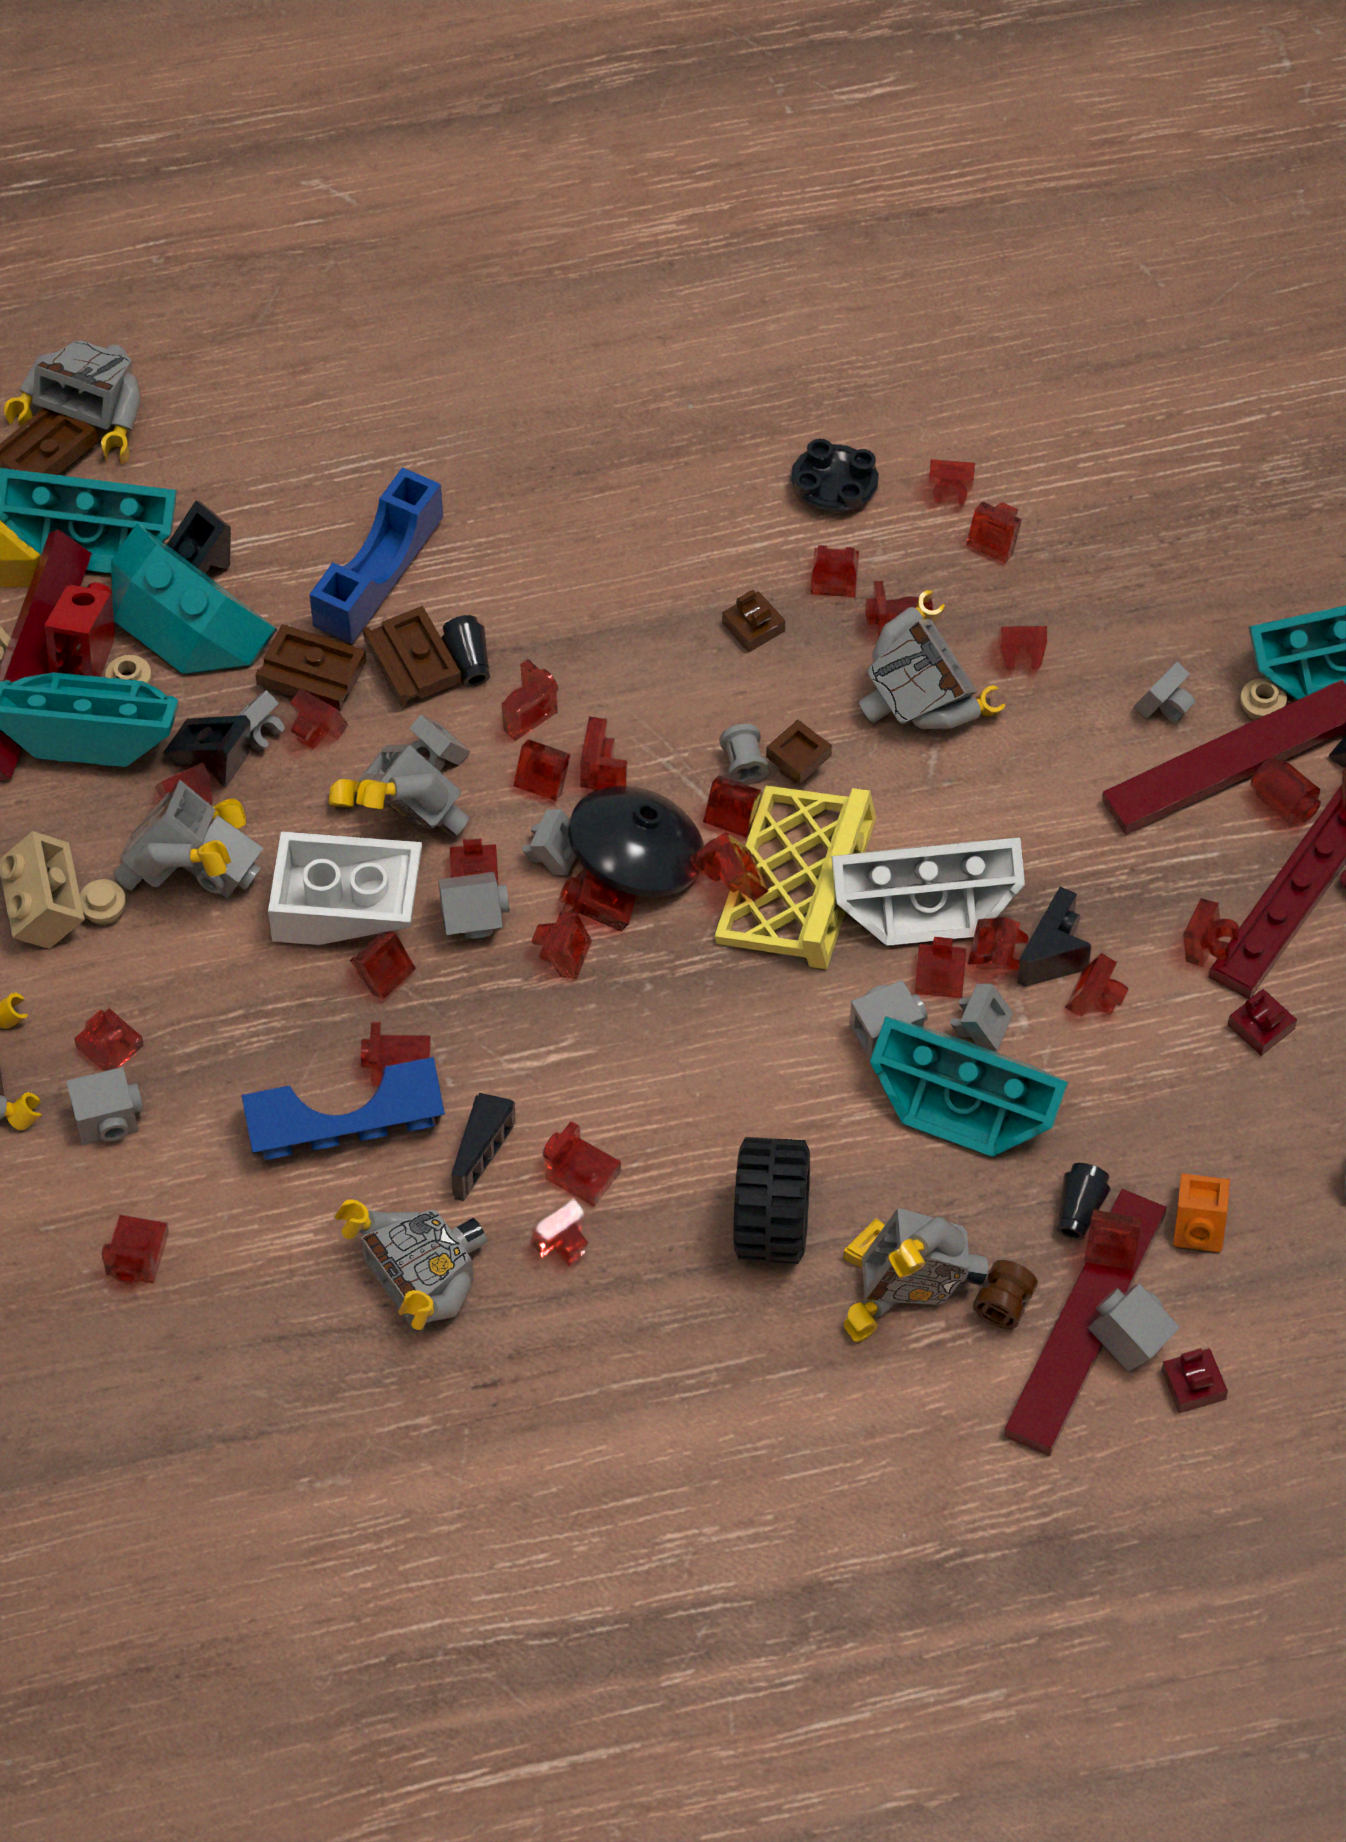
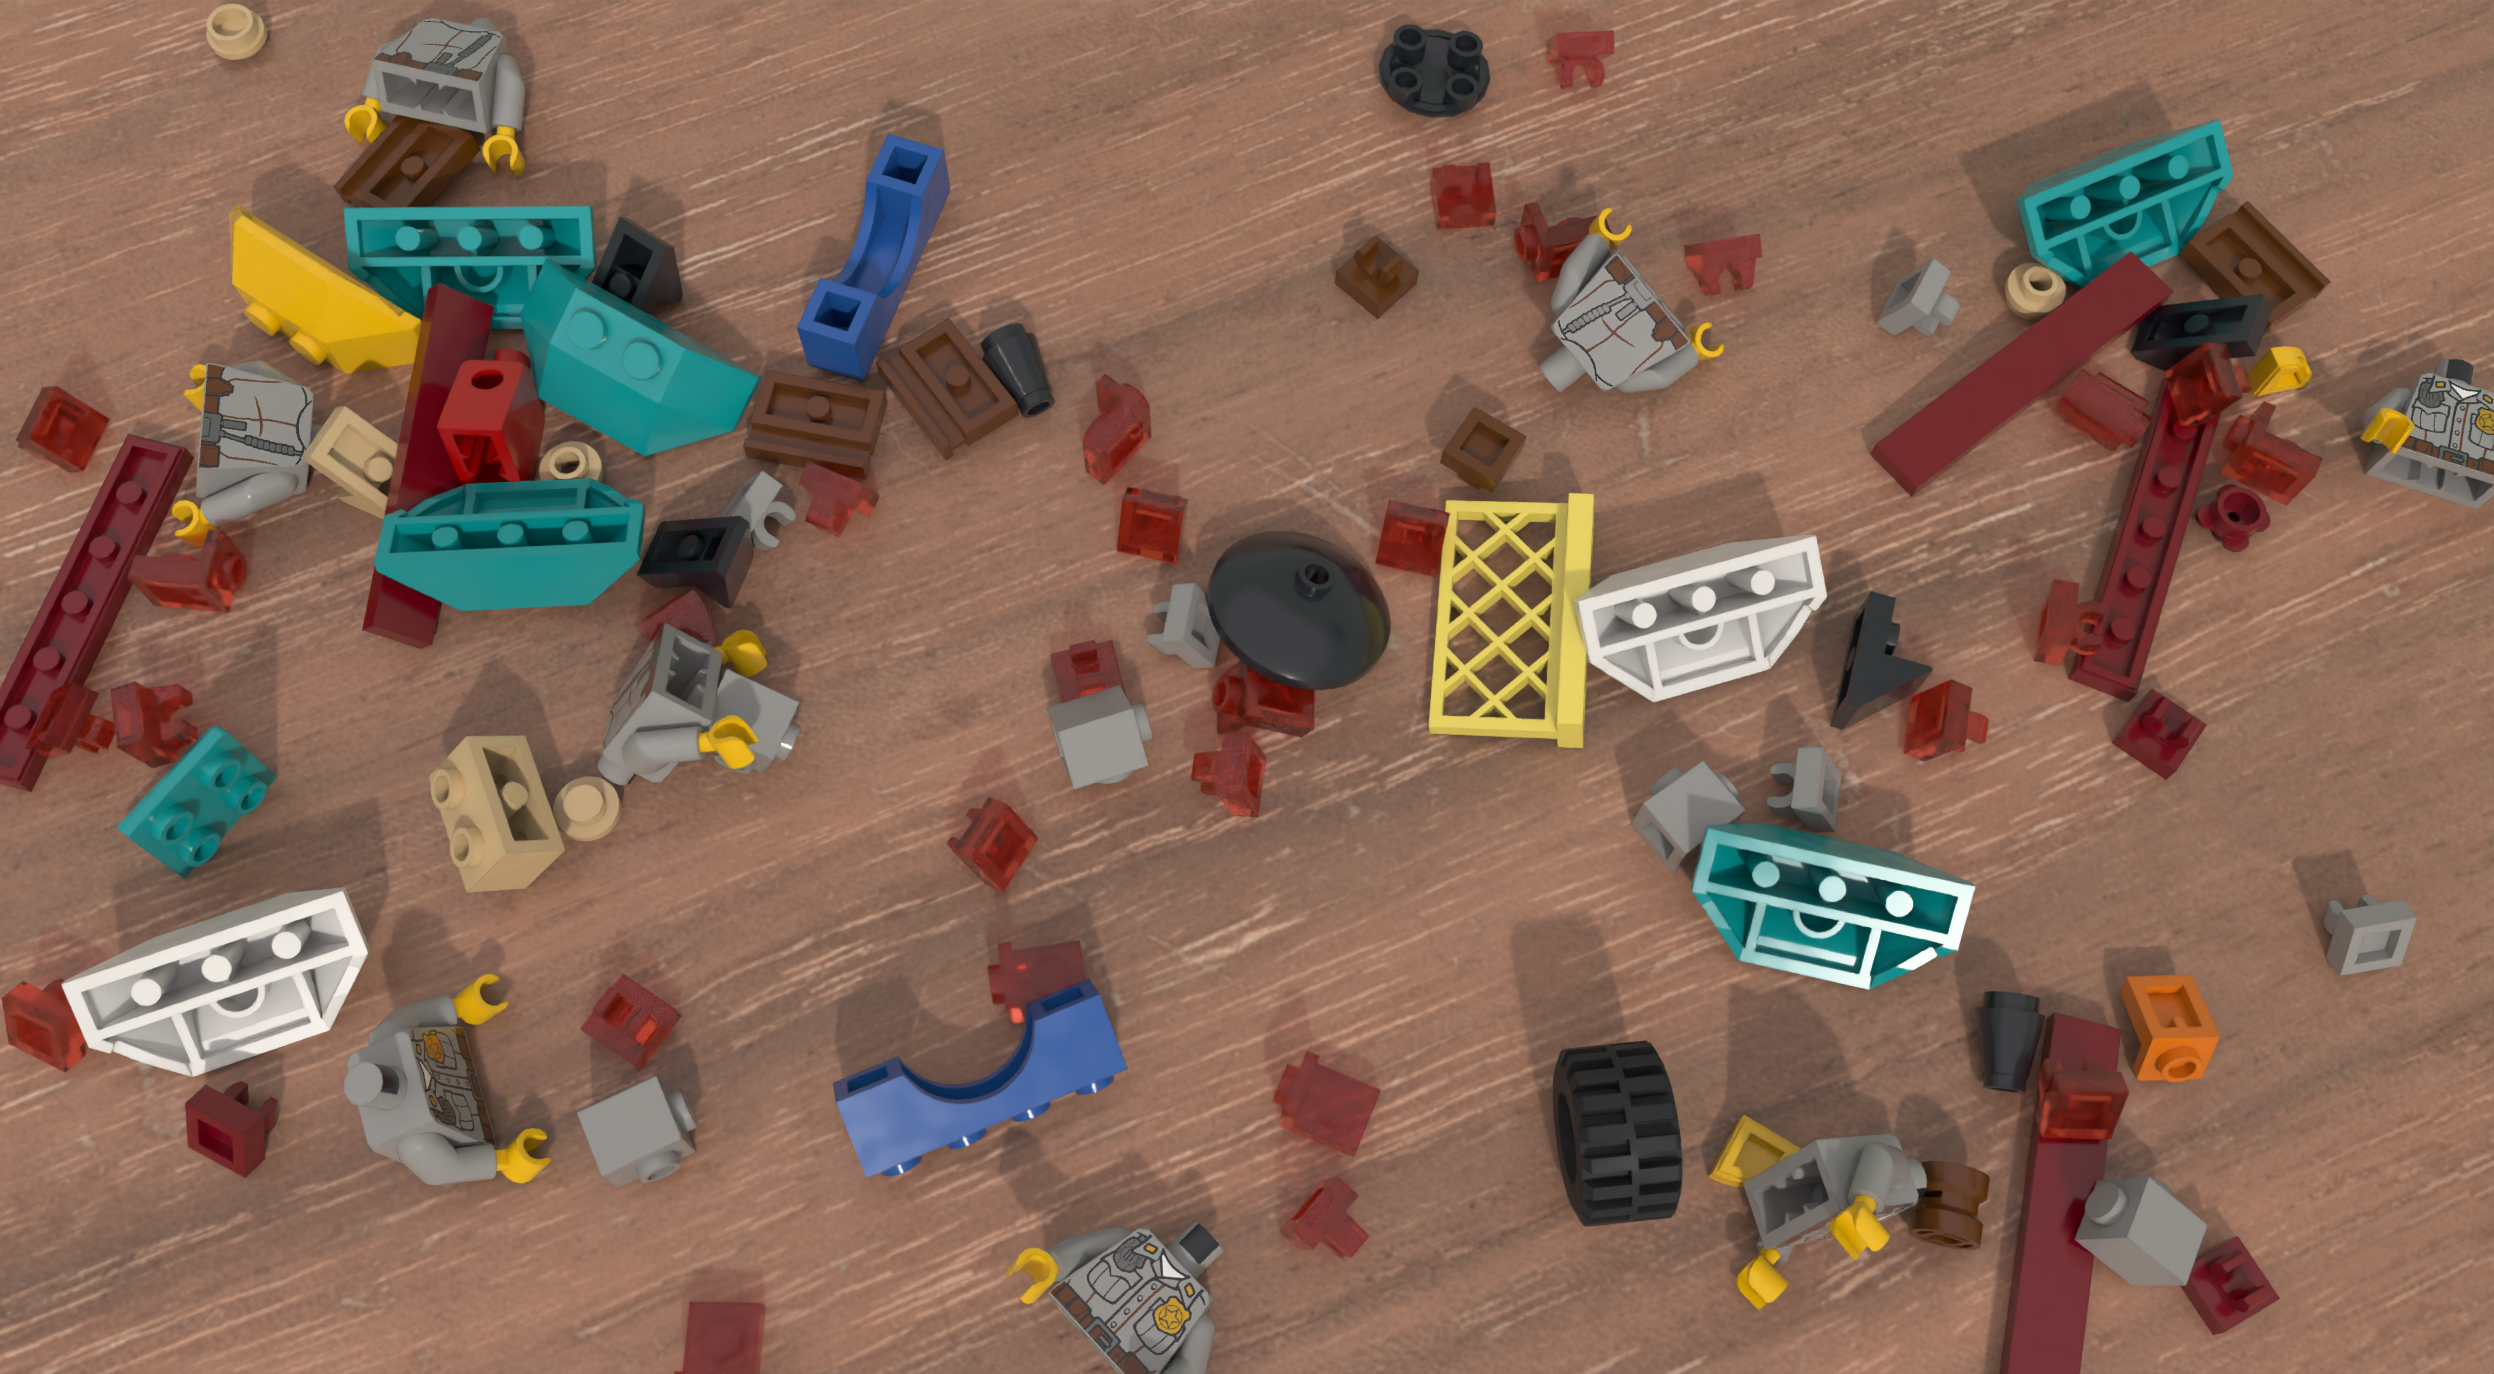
camera: 15 degrees left, 10 degrees up
(341, 887) = (919, 744): white slope -> none
(406, 785) = (975, 577): light grey torso -> none
(438, 742) = (1007, 505): light grey tile -> none
(484, 1134) = (1186, 1077): black slope -> none
(597, 763) = (1223, 511): clear red bracket -> none
(733, 864) = (1437, 623): clear red bracket -> none
(744, 753) = (1410, 462): light grey bush -> none
(940, 969) = (1733, 726): clear red tile -> none
(994, 530) = (1652, 115): clear red tile -> none
(995, 944) = (1801, 683): clear red tile -> none

